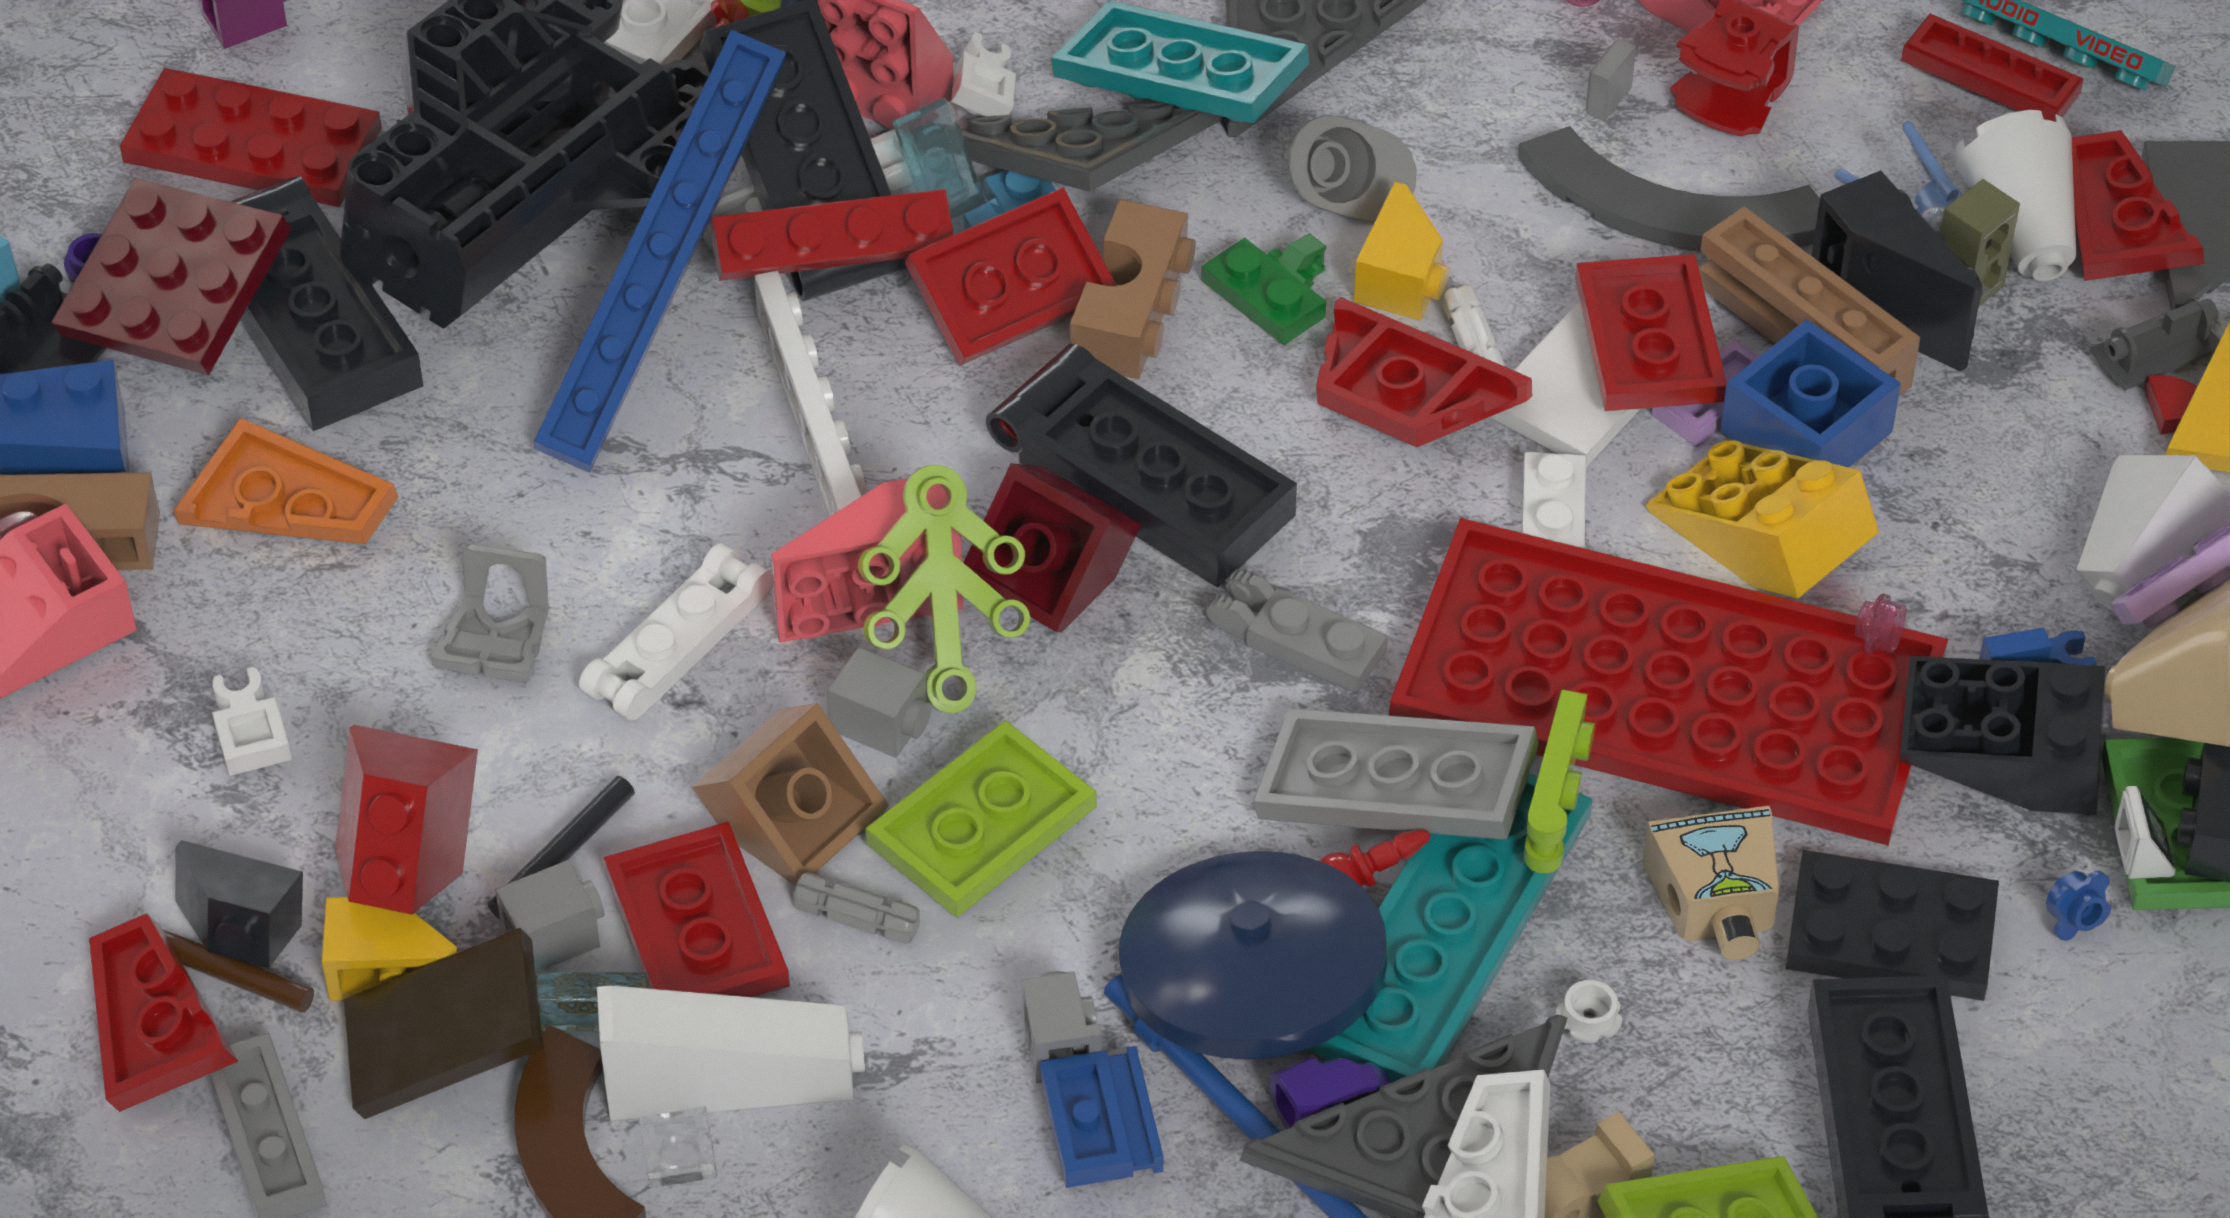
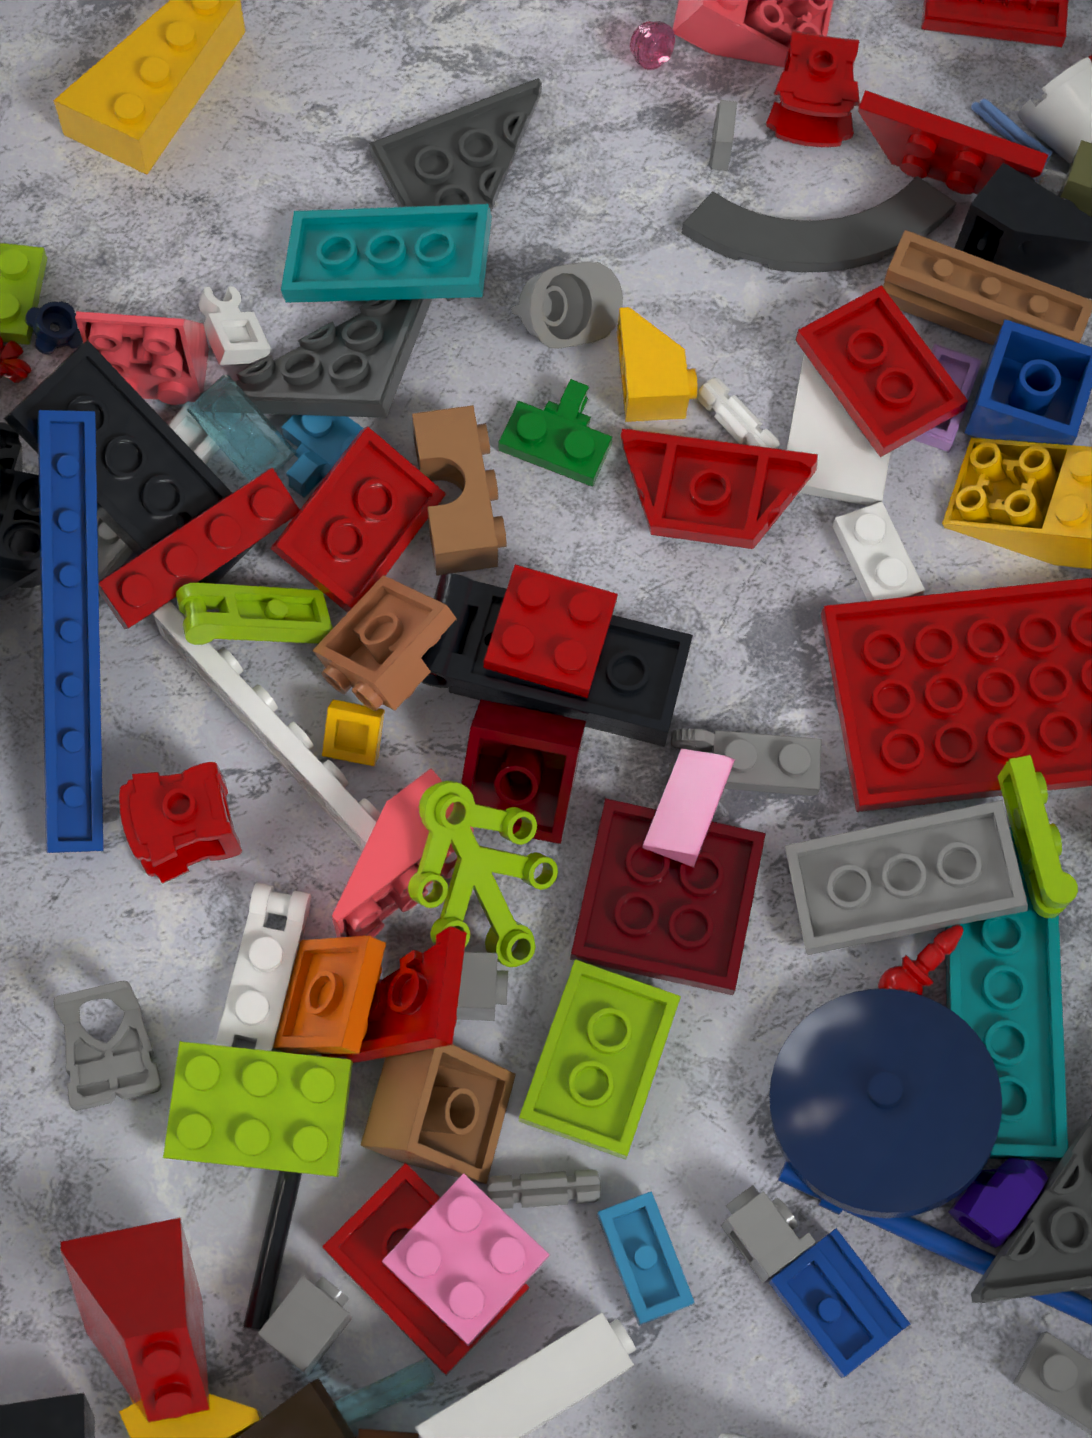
camera: 30 degrees left, 20 degrees up
(610, 720) = (258, 1109): none -> lime plate
(678, 456) = (178, 820): none -> red piece
(734, 651) = (330, 995): none -> orange plate
(738, 916) = (465, 1259): none -> bright pink plate
(793, 675) = (415, 1003): none -> red wing
(855, 312) = (252, 613): none -> lime plate
(896, 449) = (353, 732): none -> yellow plate
(923, 1000) = (645, 1258): none -> dark azure plate
(959, 385) = (382, 644): none -> nougat plate
(1140, 709) = (663, 915): none -> dark red plate
(1146, 421) = (550, 631): none -> red plate
(1205, 630) = (688, 805): none -> bright pink slope
(1827, 145) = (941, 147): none -> red wing

